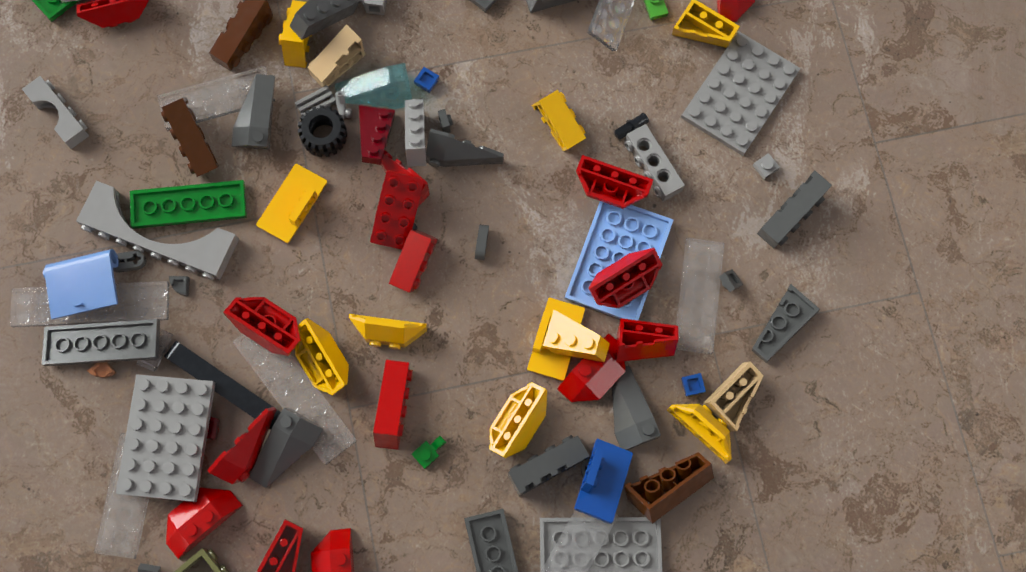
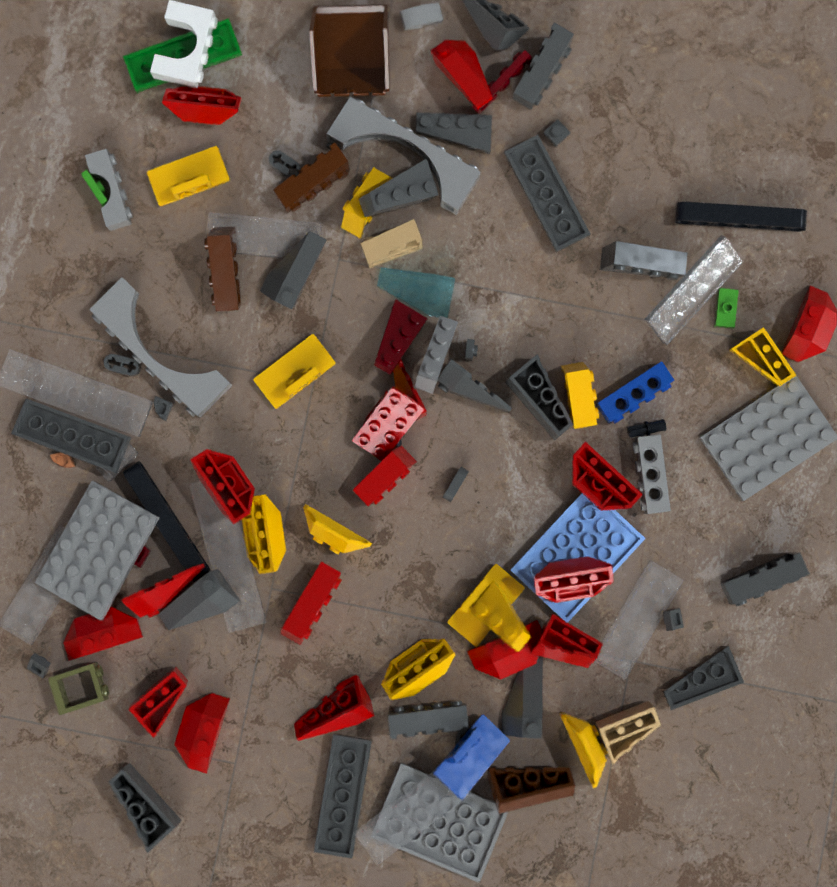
camera: 30 degrees right, 10 degrees up
(43, 114) = (96, 187): none -> bright green plate
(81, 284) = (73, 372): medium blue door -> none
(126, 73) = (188, 176): none -> yellow bracket
(187, 204) = (198, 332): green plate -> none
(212, 30) = (287, 162): none -> dark grey beam
(315, 95) = (355, 271): light grey tile -> none
(320, 117) = (346, 297): black tyre -> none
(341, 105) = (378, 294): light grey arm -> none
(426, 79) = (470, 300): blue plate -> none
(426, 453) = (325, 660): green plate -> none
(463, 490) = (340, 710): none -> red wedge
(525, 136) = (540, 397): none -> dark grey wedge
(619, 76) = (658, 373): none -> blue brick
(693, 385) = (593, 702): blue plate -> none
(766, 166) = (759, 521): light grey plate -> none

